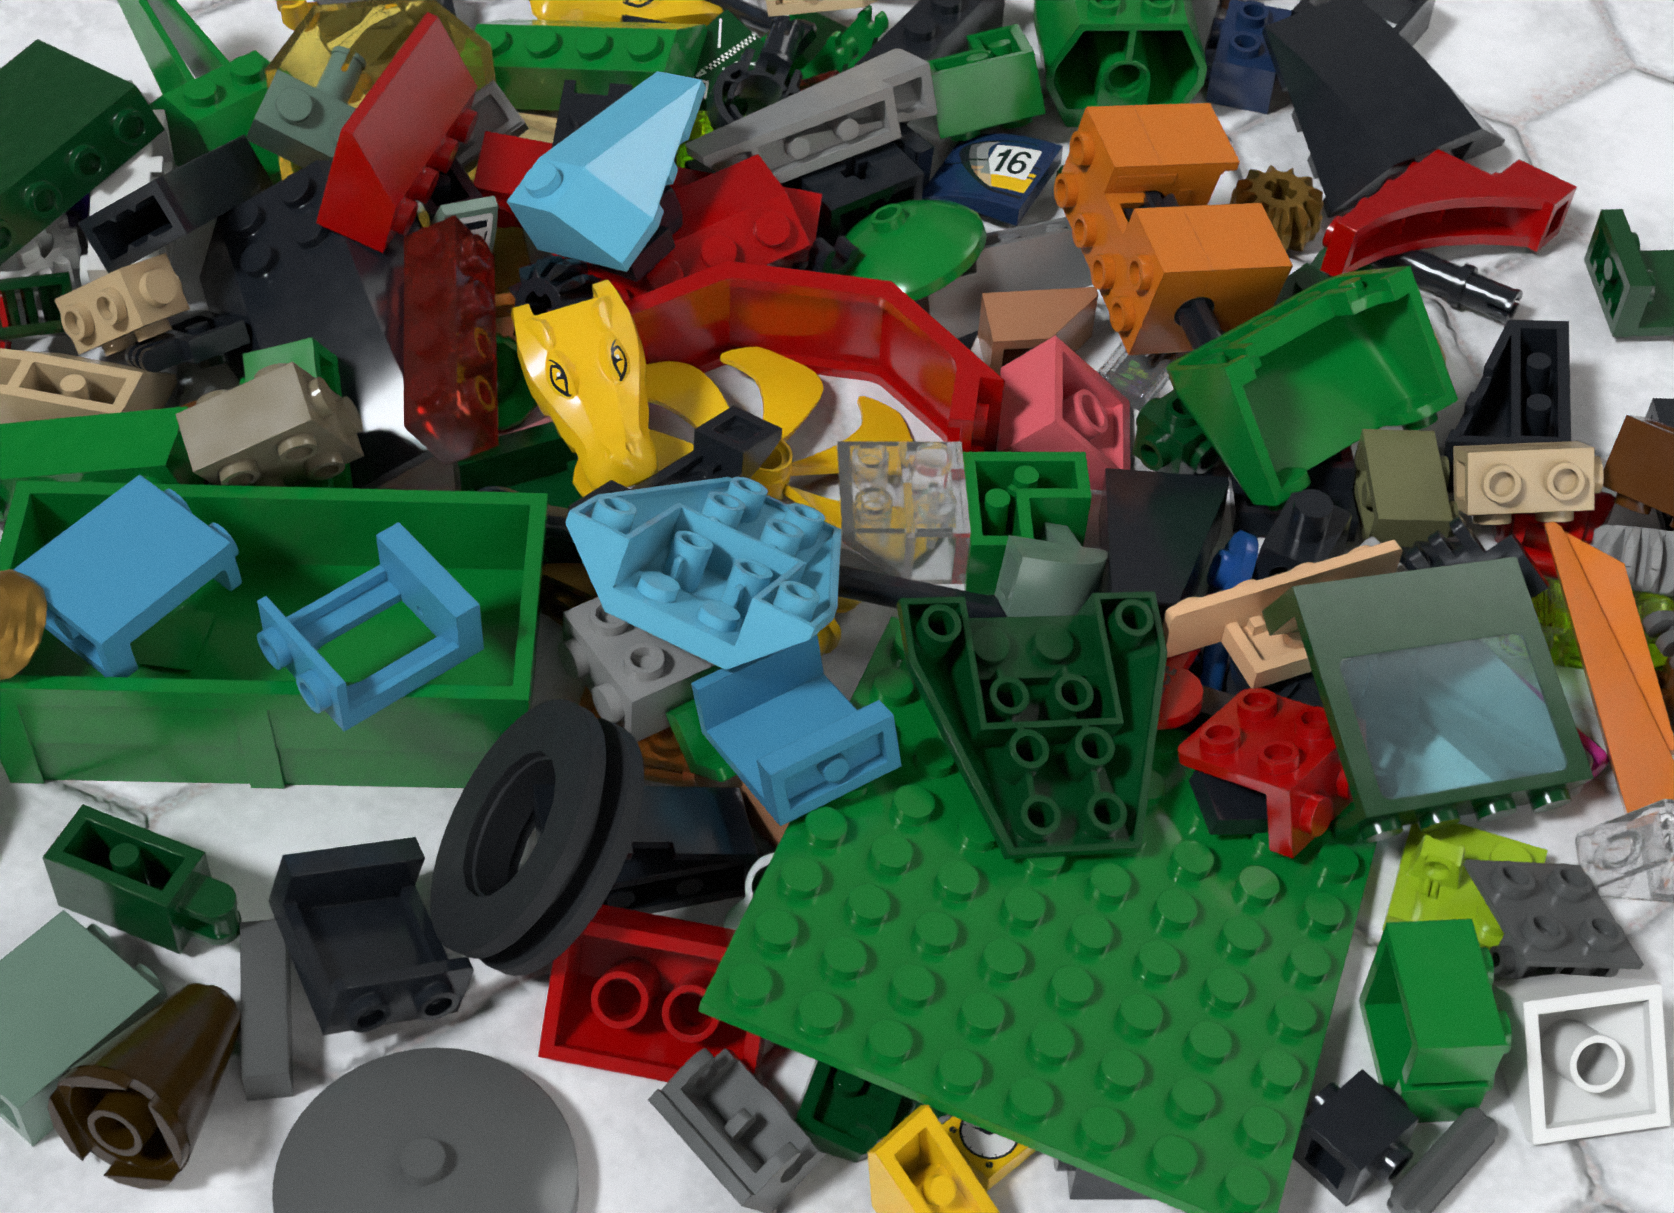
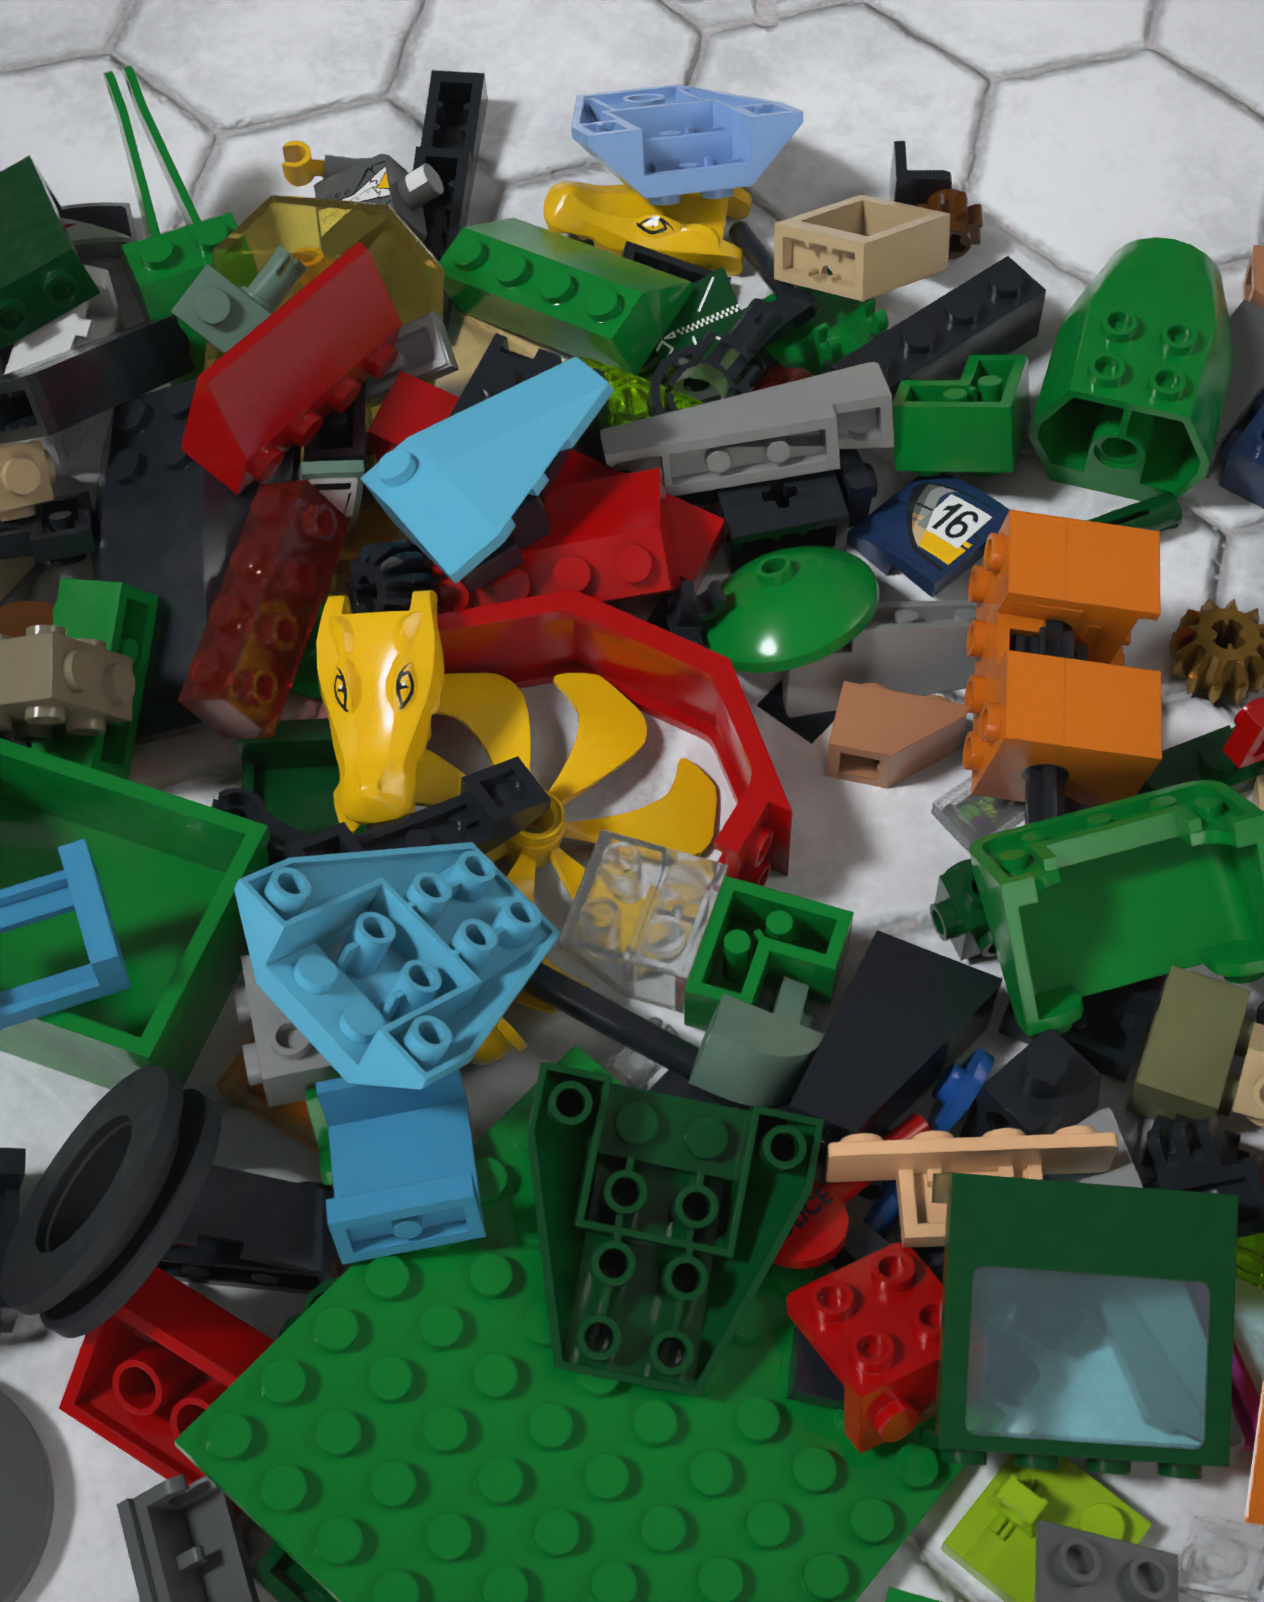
camera: 25 degrees right, 10 degrees up
(1064, 406) = (872, 852): coral slope -> none

